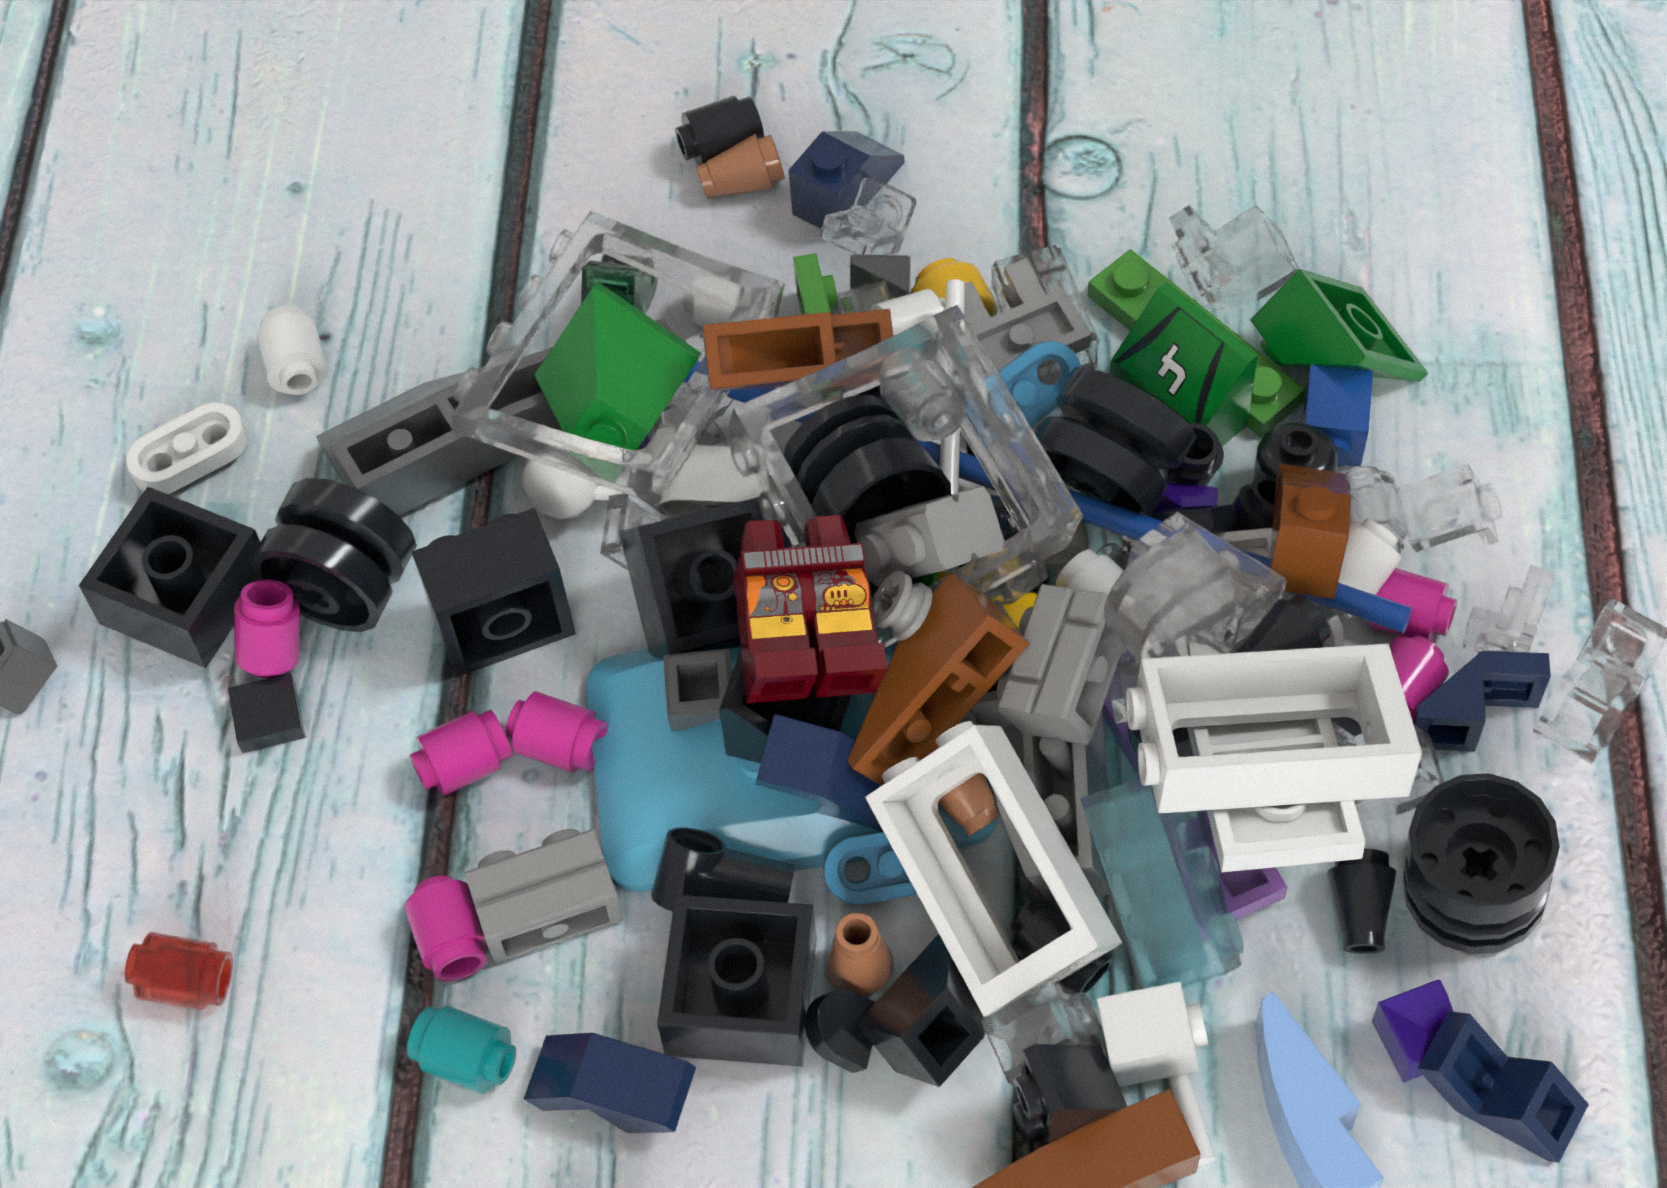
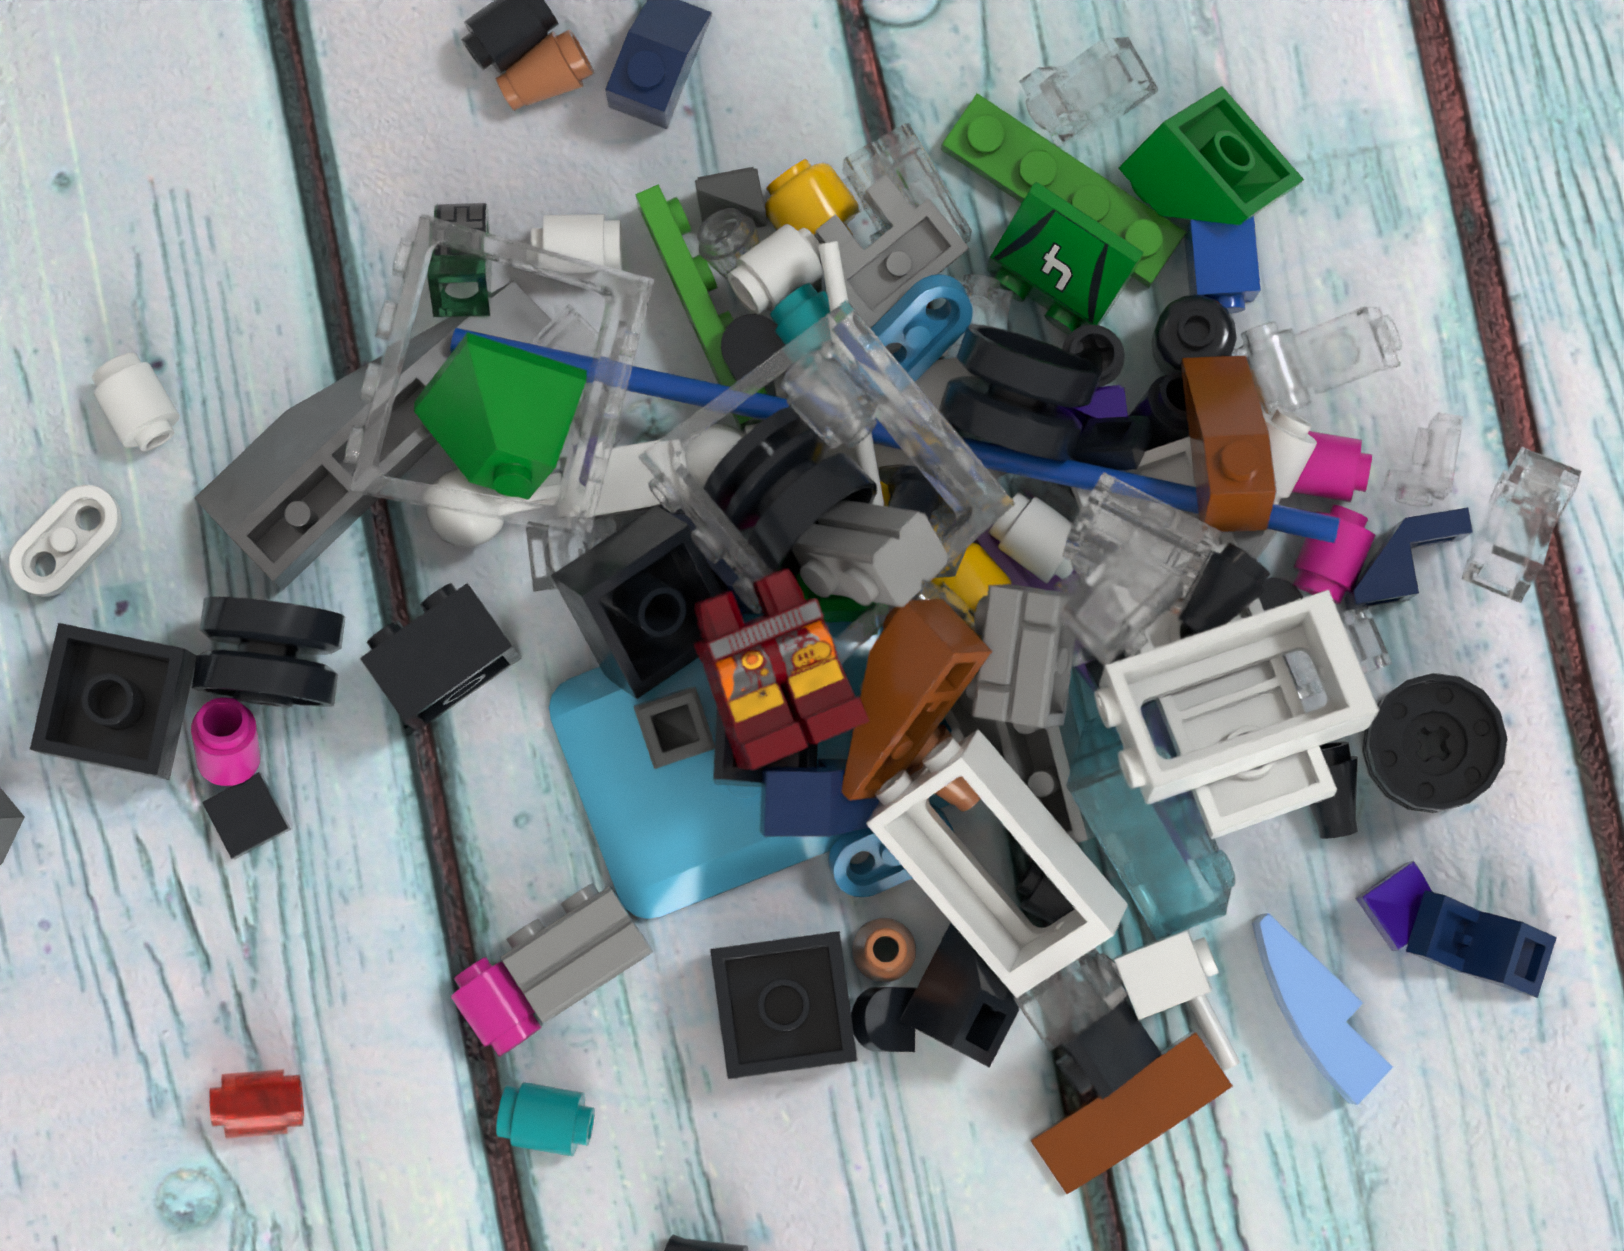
camera: 20 degrees left, 25 degrees up
(460, 752) = (453, 823): dark pink brick -> none
(555, 732) = (539, 782): dark pink brick -> none
(613, 1079) = (689, 1121): dark blue slope -> none
(703, 866) = (721, 903): black piece -> none
(787, 347) = (690, 355): dark orange slope -> none
(874, 222) = (700, 121): clear bracket -> none
(901, 605) = (863, 640): light grey bush -> none

